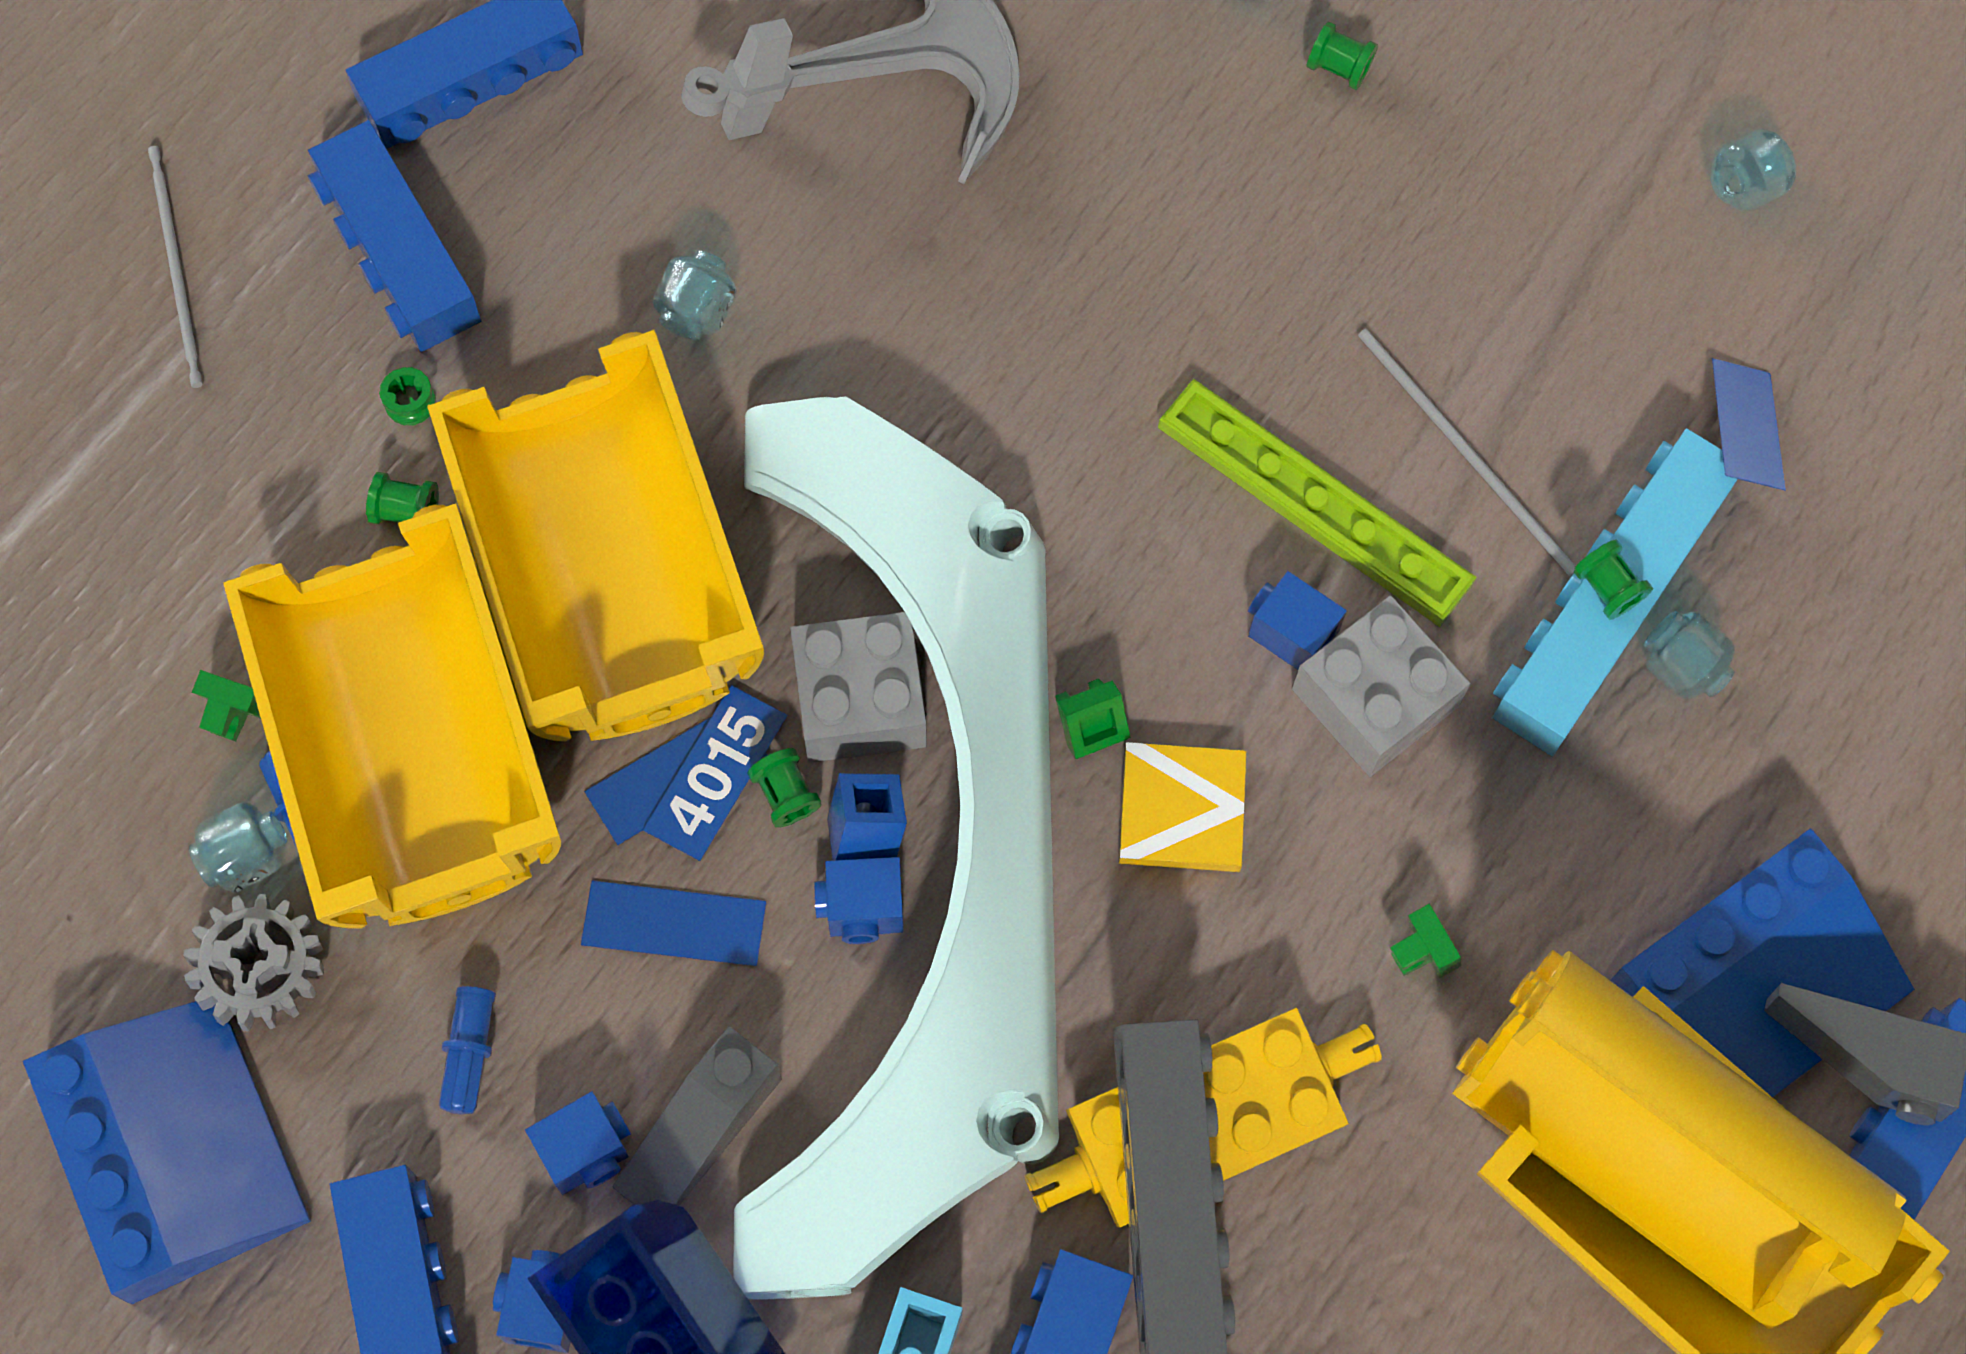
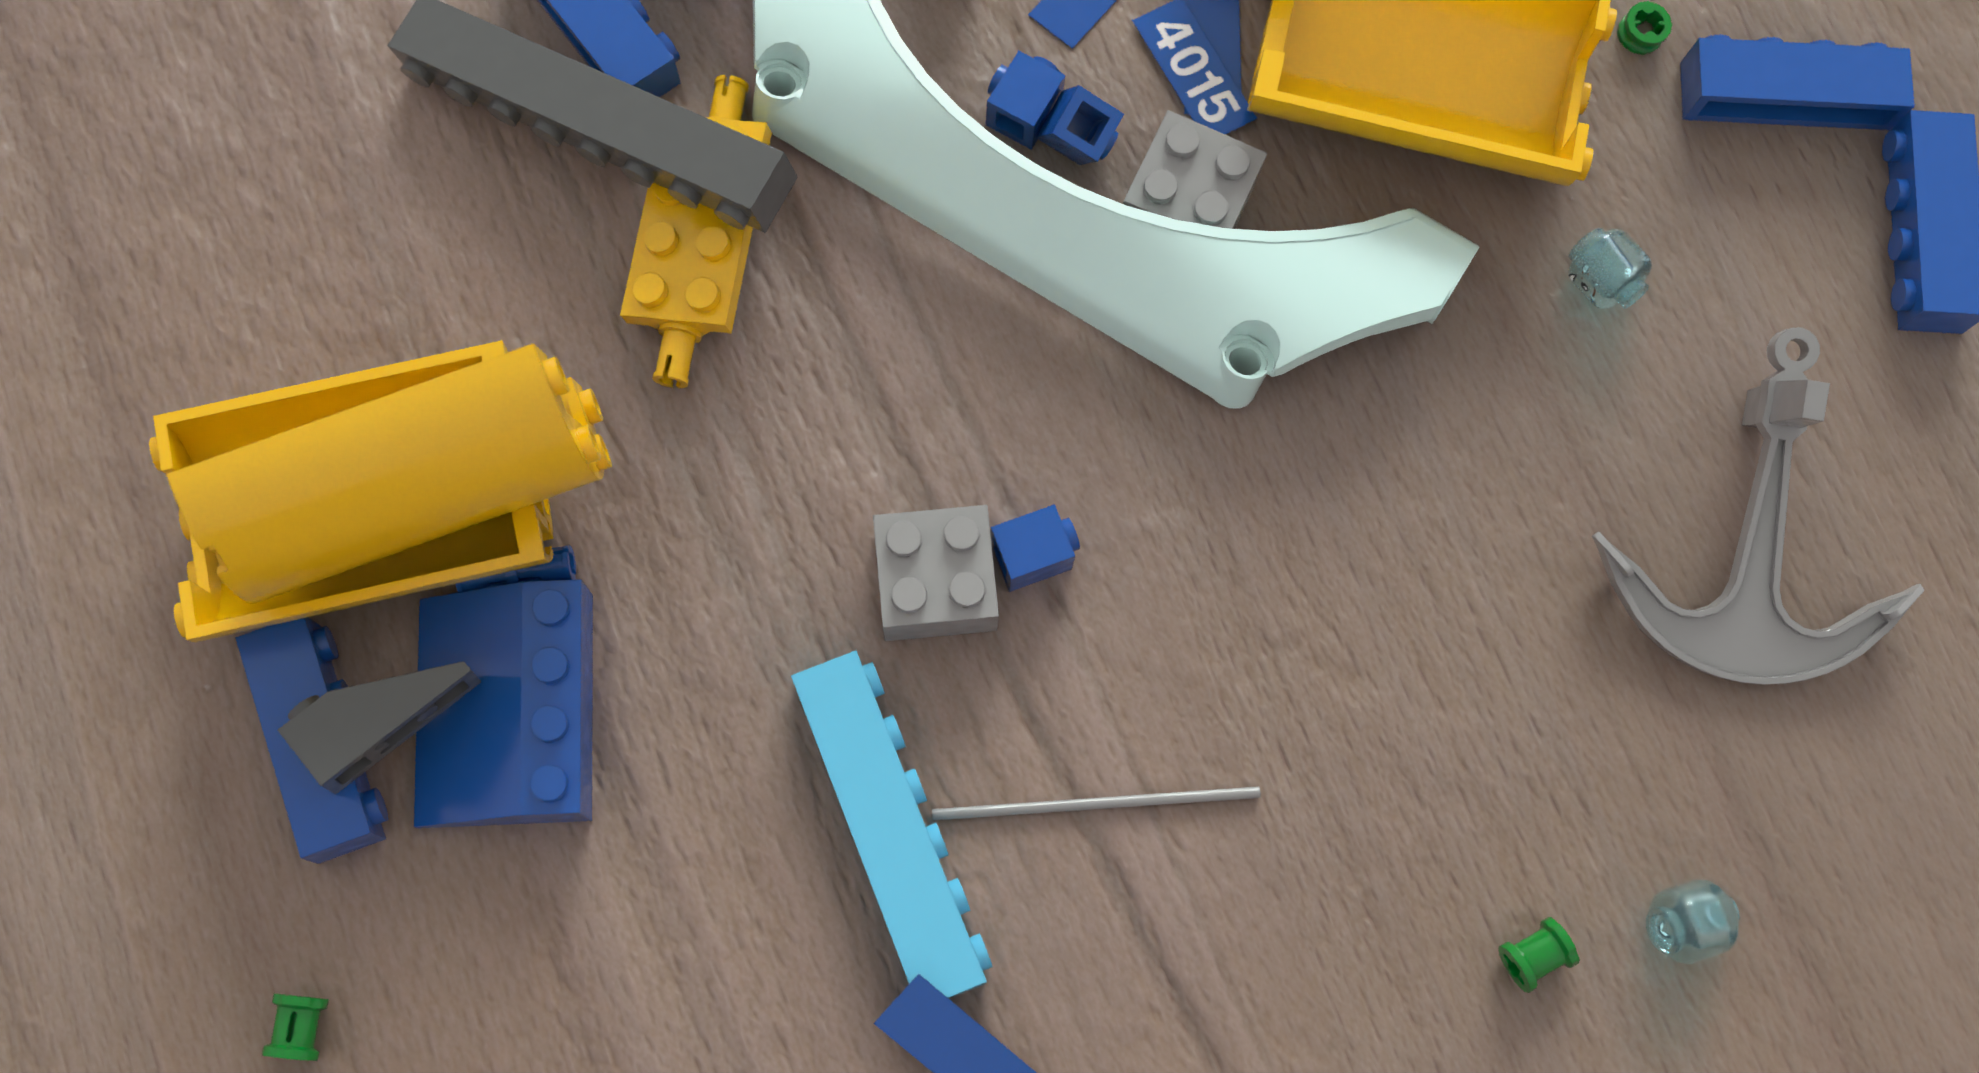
camera: 120 degrees right, 5 degrees up
(784, 787) = (1146, 97): green bush -> none
(1093, 718) = (1055, 345): green tile -> none
(1183, 807) = (944, 372): yellow tile -> none
(1317, 502) = (1128, 645): lime tile -> none
(1426, 945) = (710, 469): green tile -> none
(1613, 579) = (888, 800): green bush -> none
(1690, 655) = (794, 845): clear light blue head -> none

